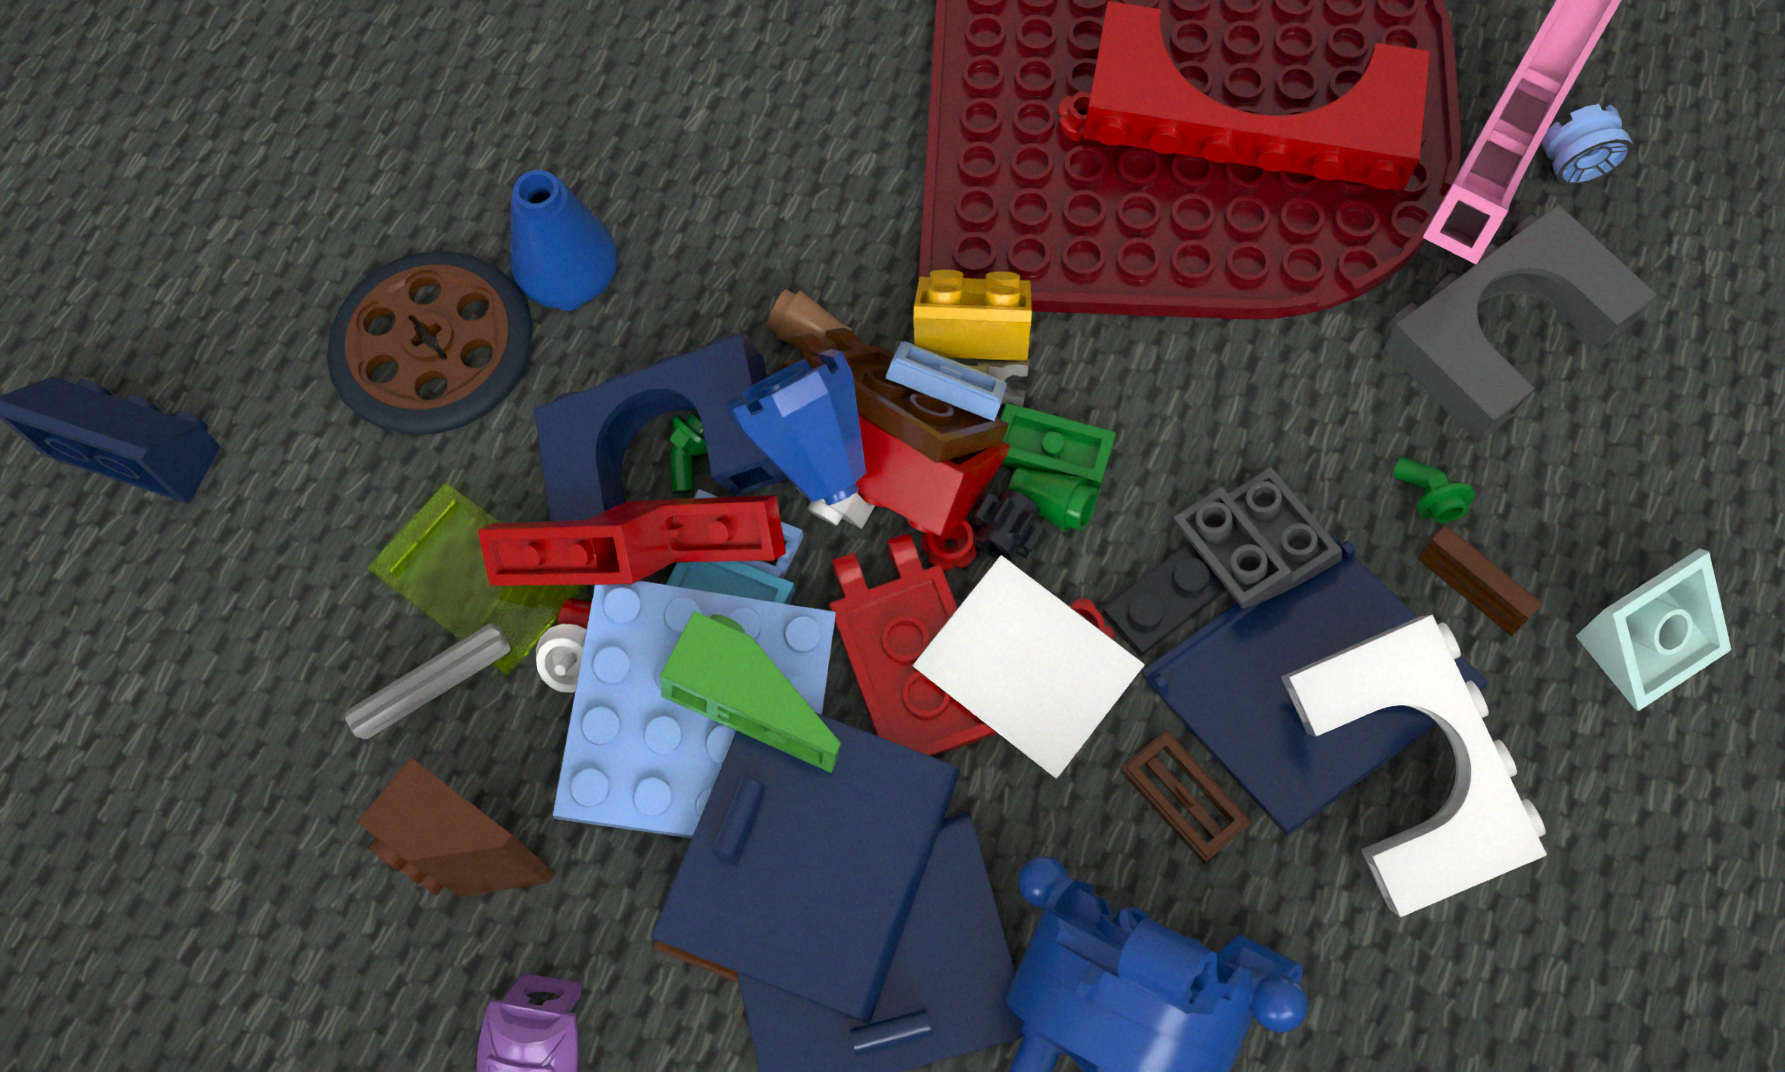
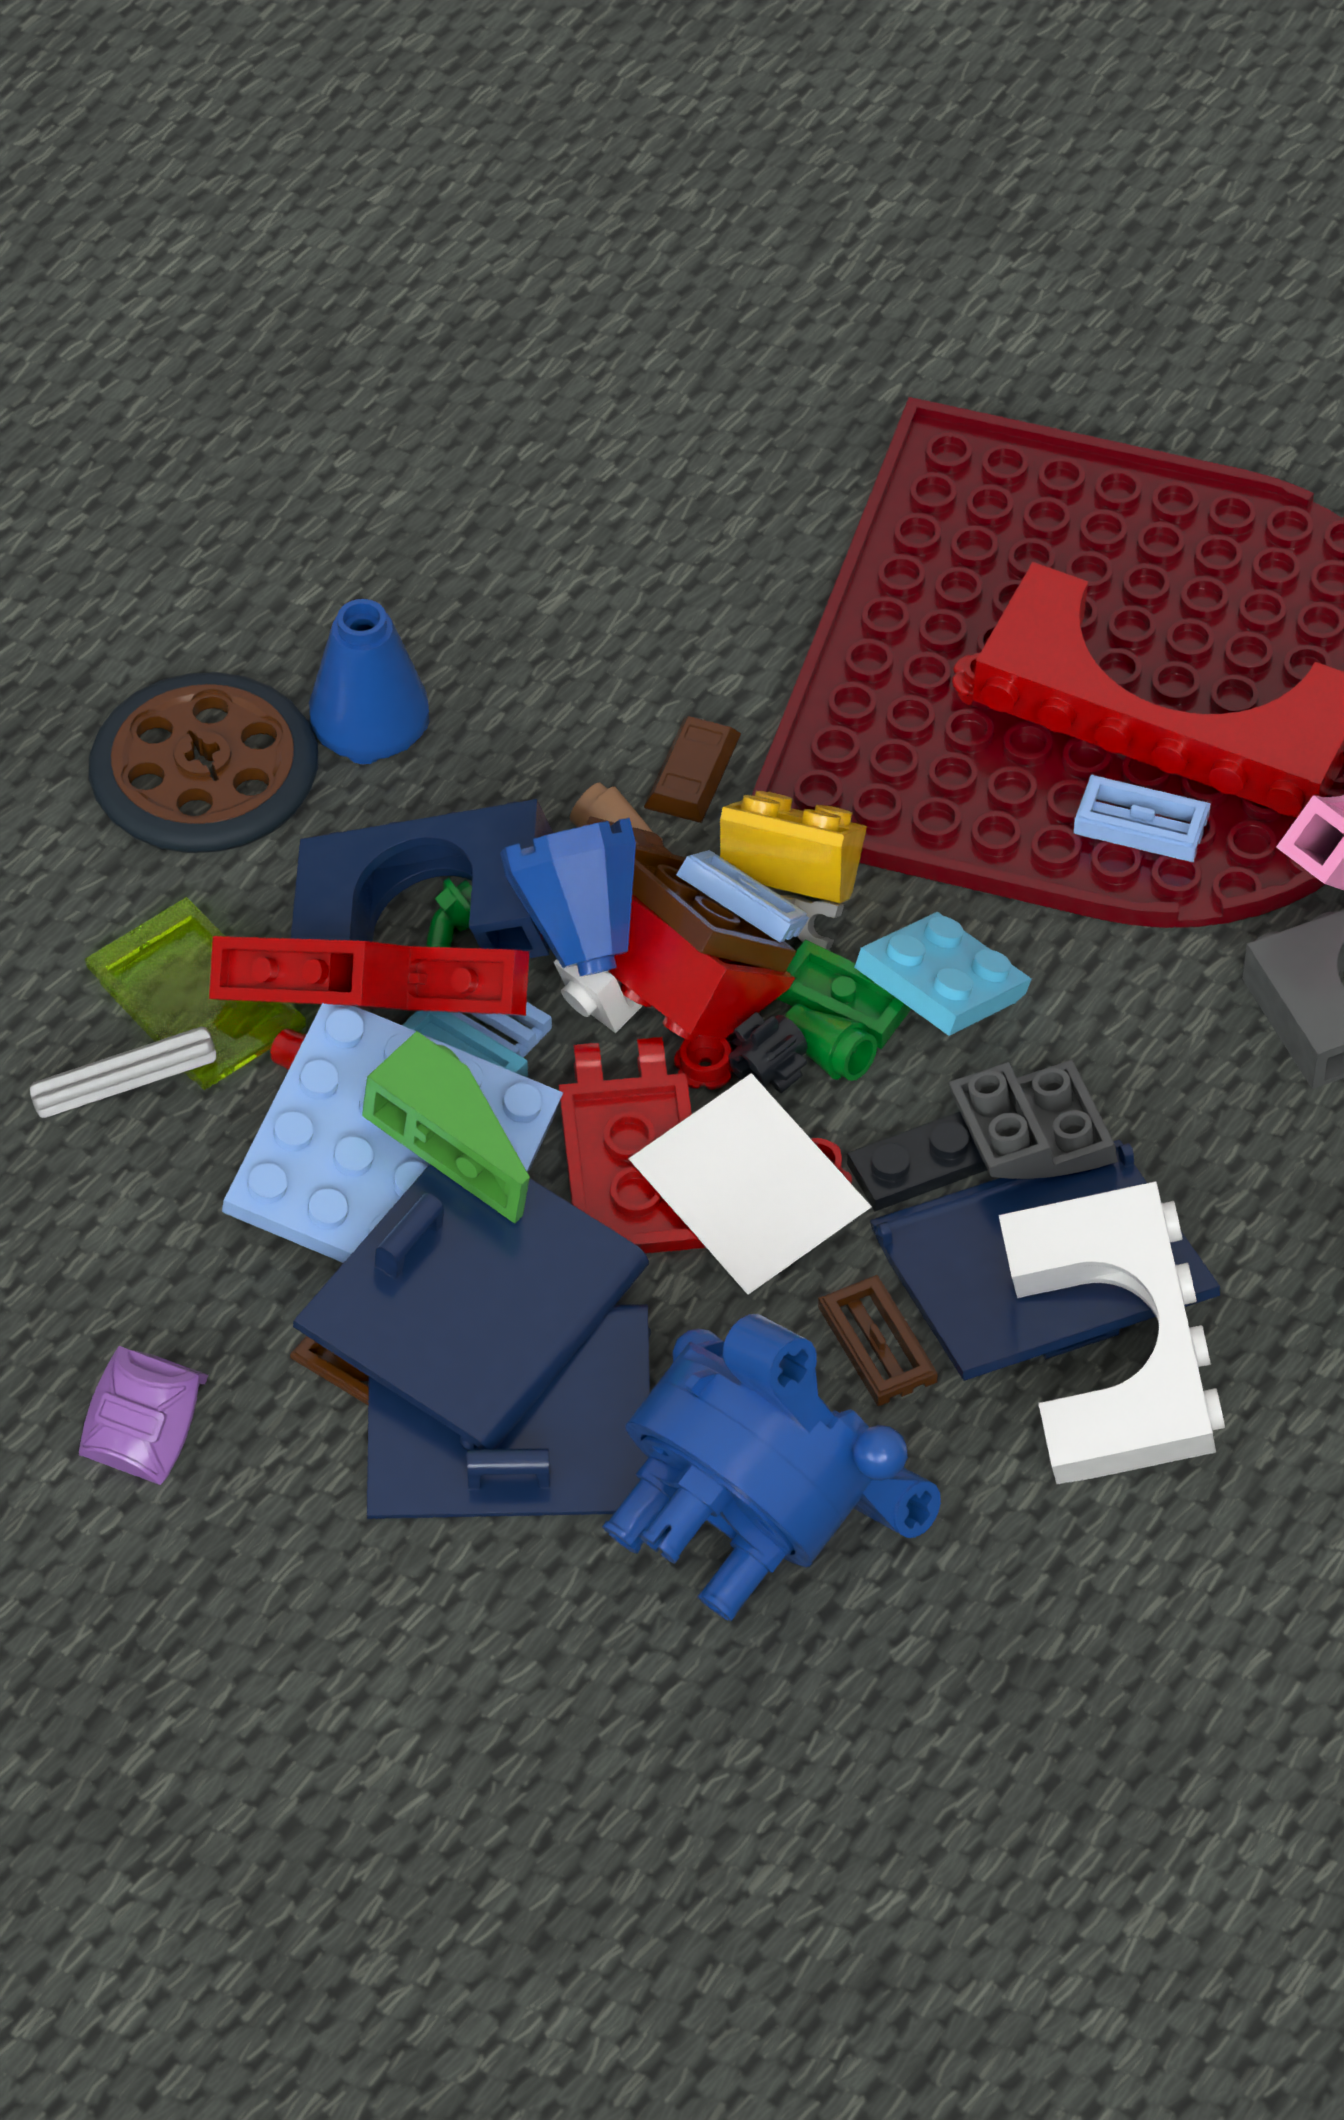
camera: 10 degrees right, 15 degrees down
(445, 839) = (125, 1192): reddish brown slope -> none
(560, 656) = (264, 1074): white hat -> none
(857, 253) = (693, 769): none -> reddish brown tile
(1135, 408) = (943, 973): none -> medium azure plate
(1262, 226) = (1140, 826): none -> light blue tile
(1443, 498) = (1242, 1119): green plate -> none
(1479, 580) = (1253, 1205): reddish brown tile -> none

